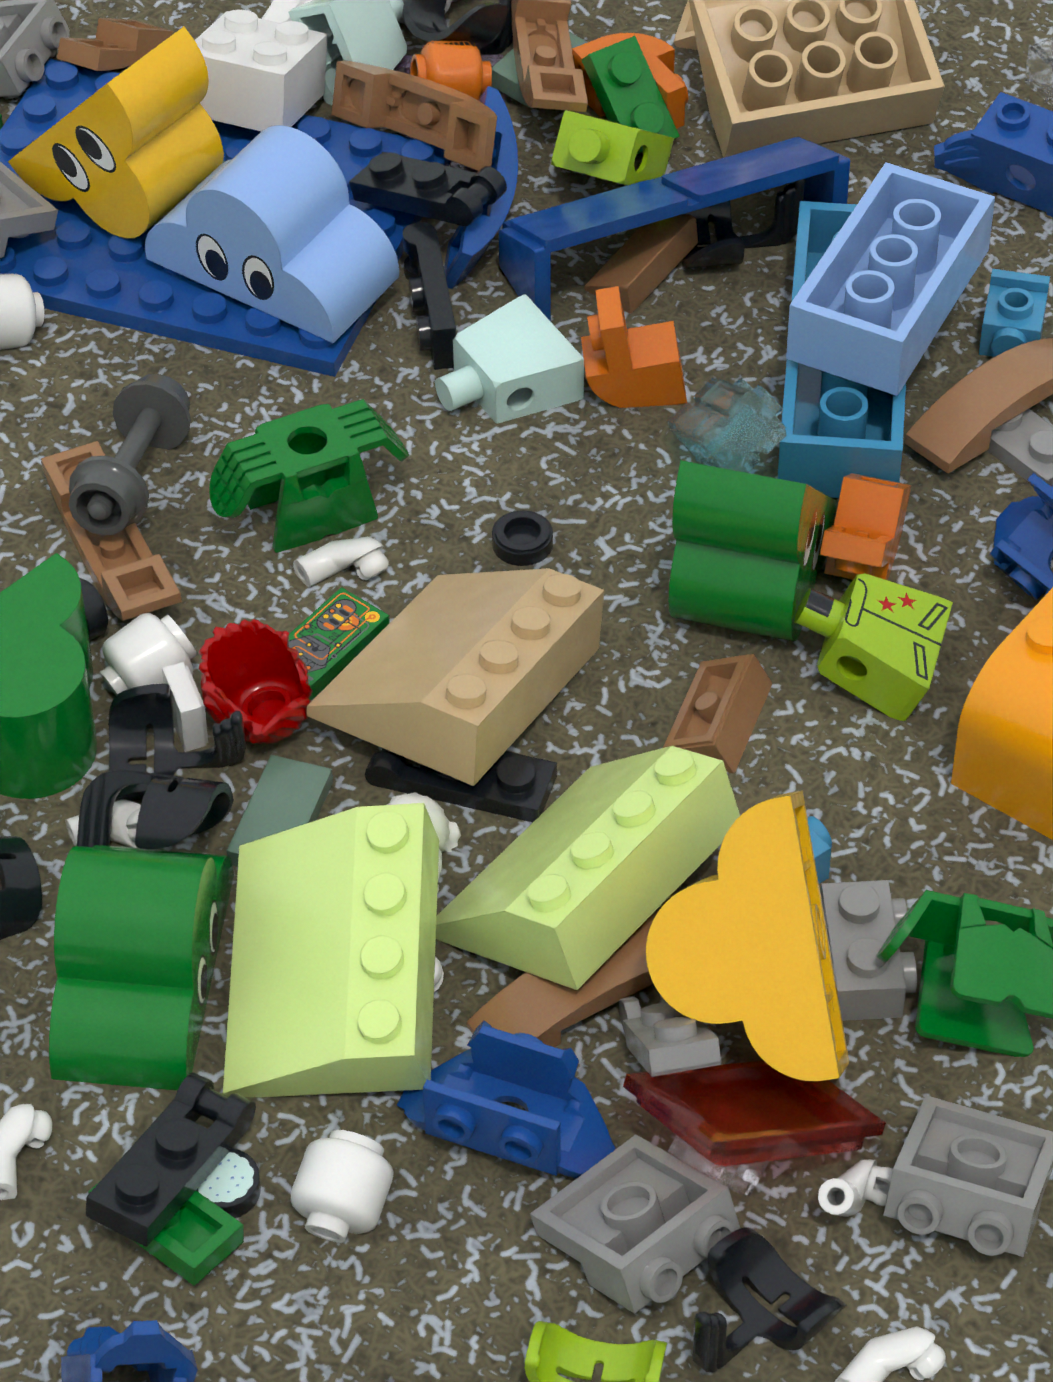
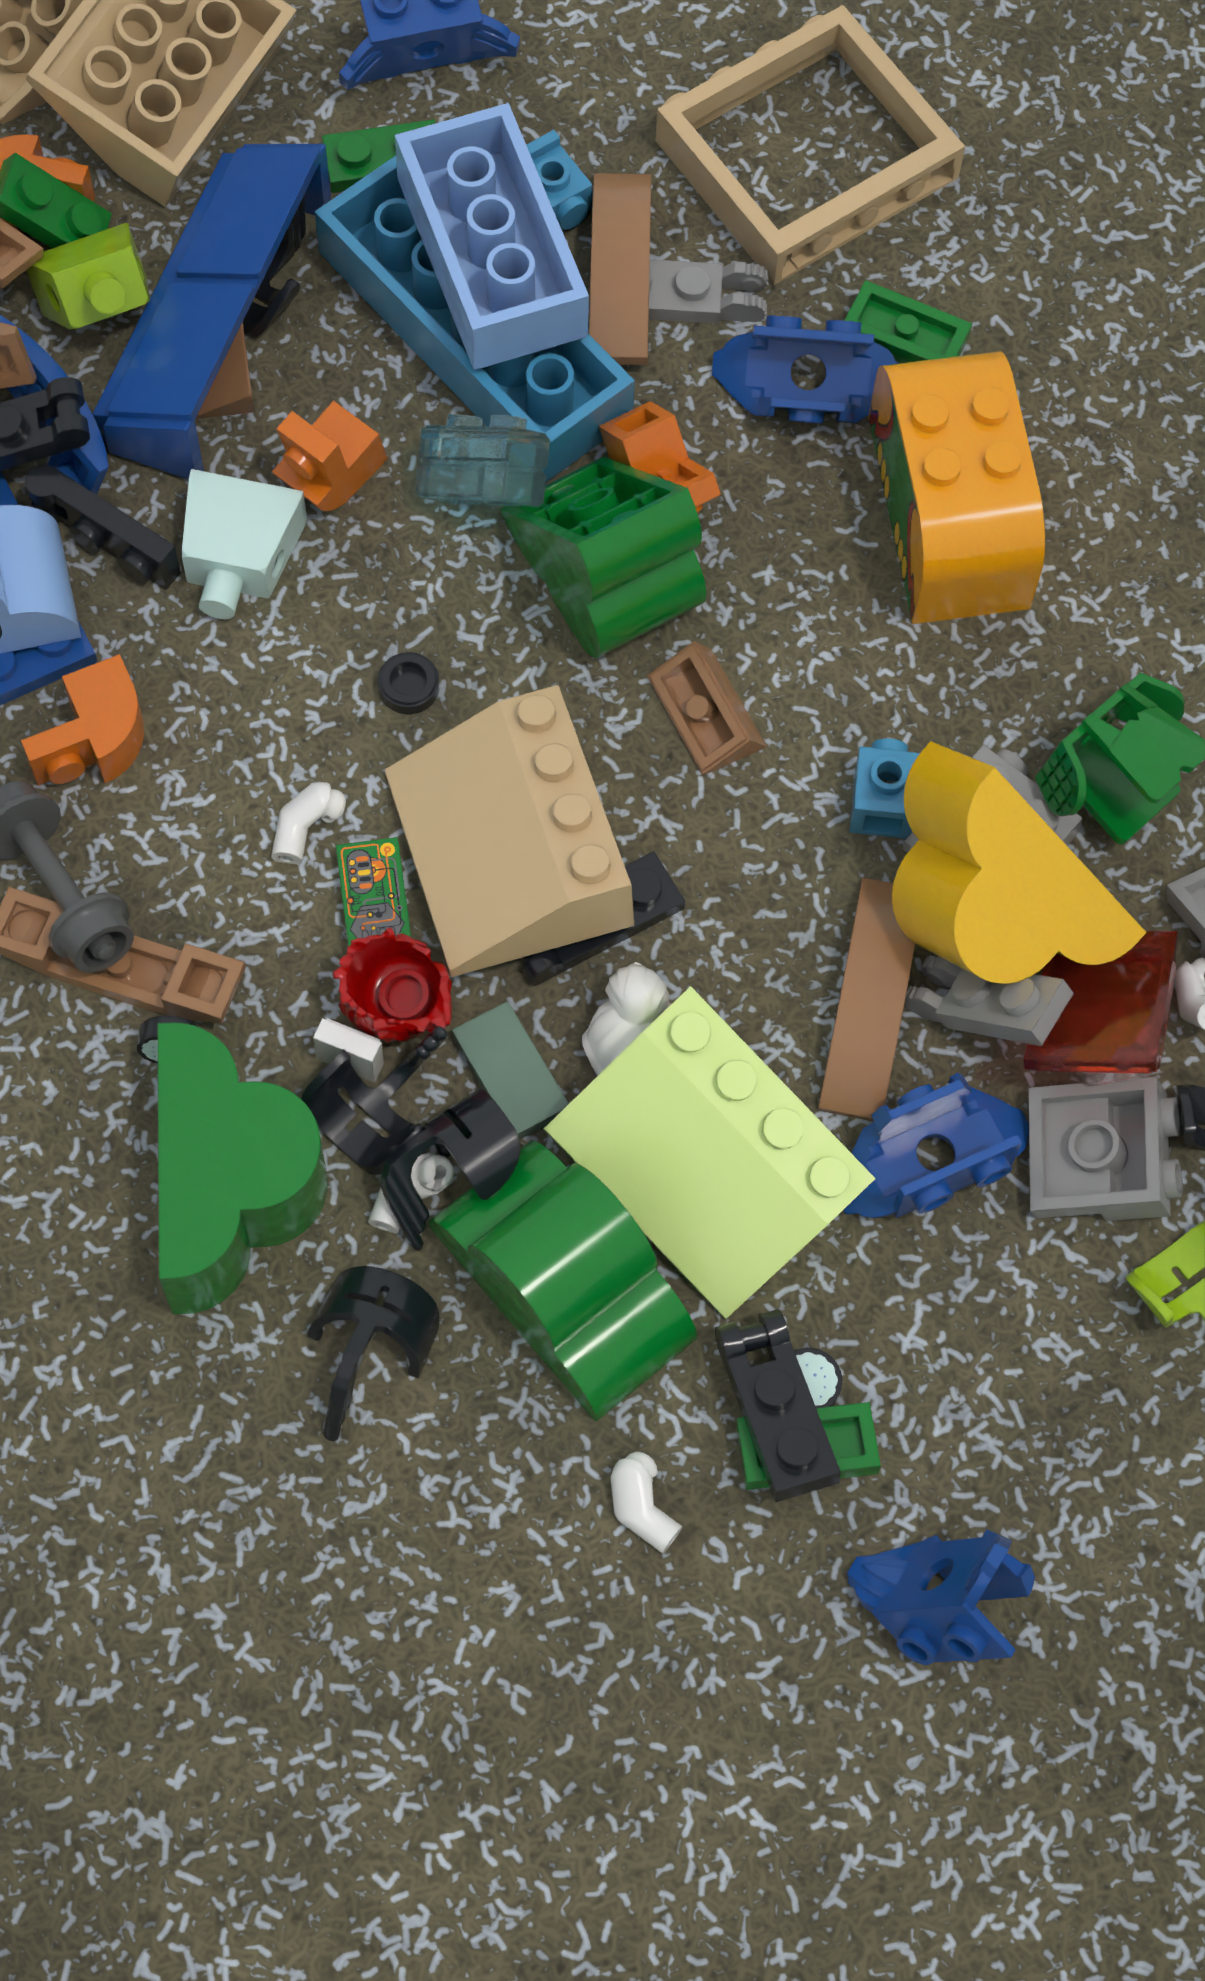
camera: 50 degrees left, 20 degrees up
(141, 651) = (274, 1036): white head -> none
(289, 386) = (105, 728): none -> orange brick
(291, 462) = (199, 798): green piece -> none
(342, 1185) = (896, 1310): white head -> none
(594, 865) = (784, 912): yellowish green slope -> none
(878, 640) = (773, 554): lime torso -> none

